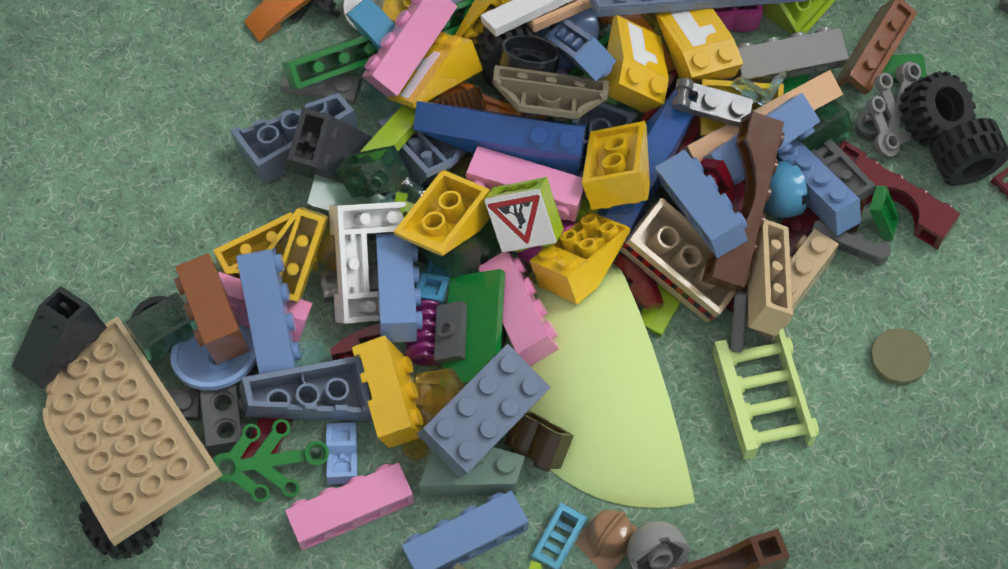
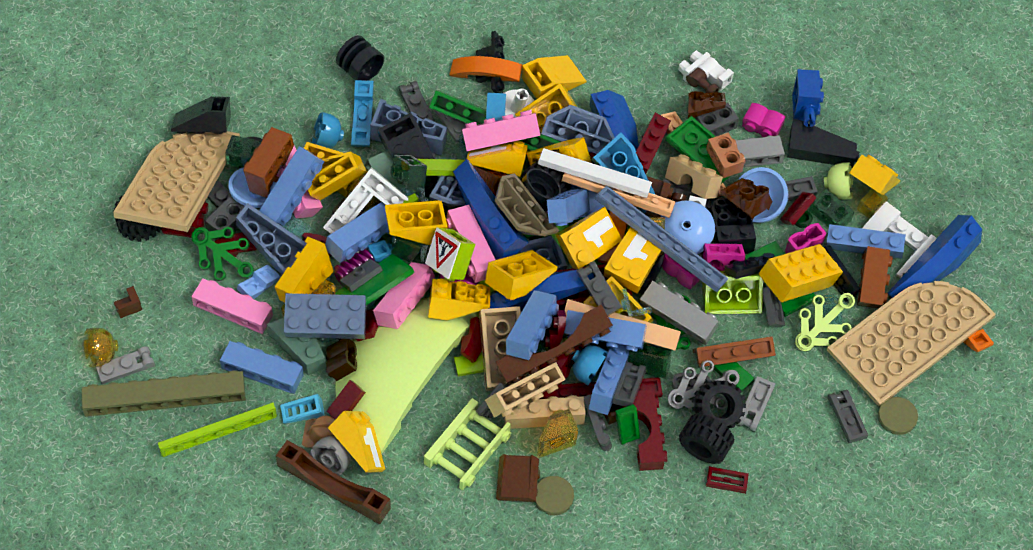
camera: 45 degrees right, 5 degrees down
(148, 110) = (359, 59): none -> black wheel
(211, 217) = (327, 131): none -> dark azure cylinder
(223, 168) = (362, 113): none -> dark azure slope
(260, 101) = (416, 101): none -> dark grey plate
(598, 479) = (346, 399): none -> dark red tile
(663, 503) = (359, 439): none -> yellow slope
(837, 288) = (558, 433): none -> clear yellow slope
(853, 376) = (517, 478): none -> reddish brown slope
(945, 58) = (757, 402): none -> light grey plate

